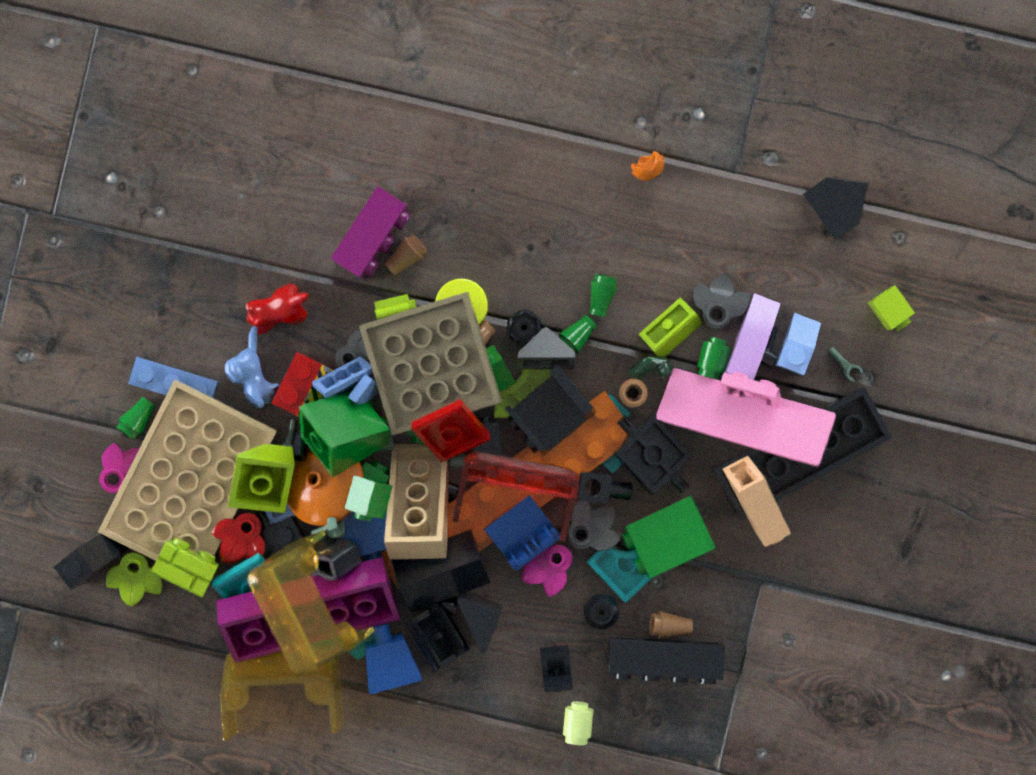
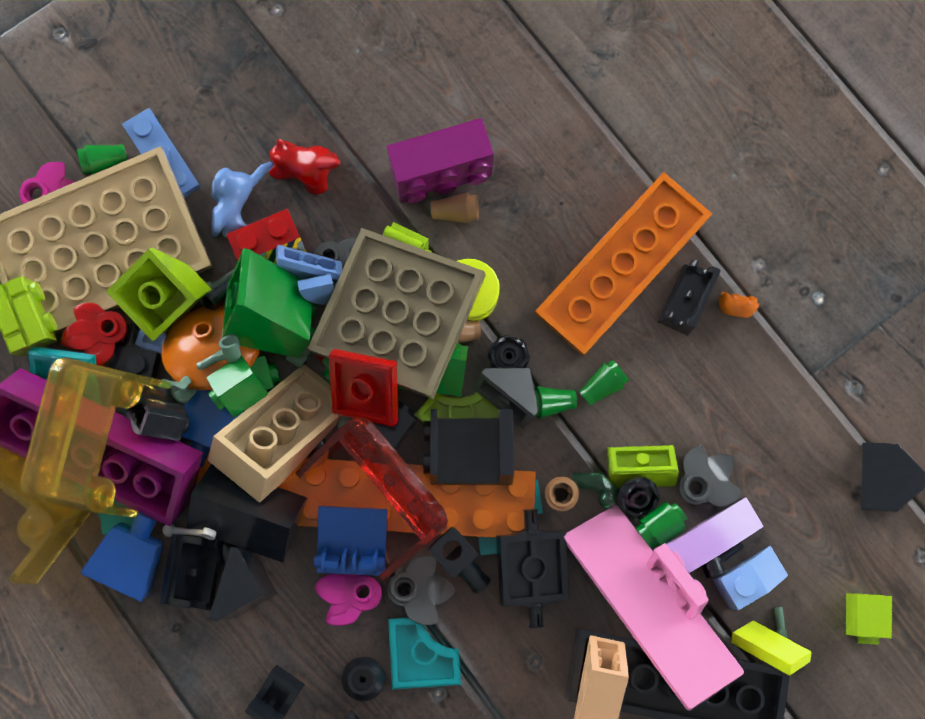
camera: 35 degrees right, 10 degrees down
(344, 480) = (229, 351): none -> sand green hand
(427, 604) = (206, 532): none -> white hinge
(549, 200) = (622, 264): none -> orange plate
(611, 188) = (689, 297): none -> black hinge
(668, 538) = (484, 659): green slope -> none
(685, 359) = (642, 504): none -> black plate
(843, 381) = (771, 647): none -> neon yellow tile

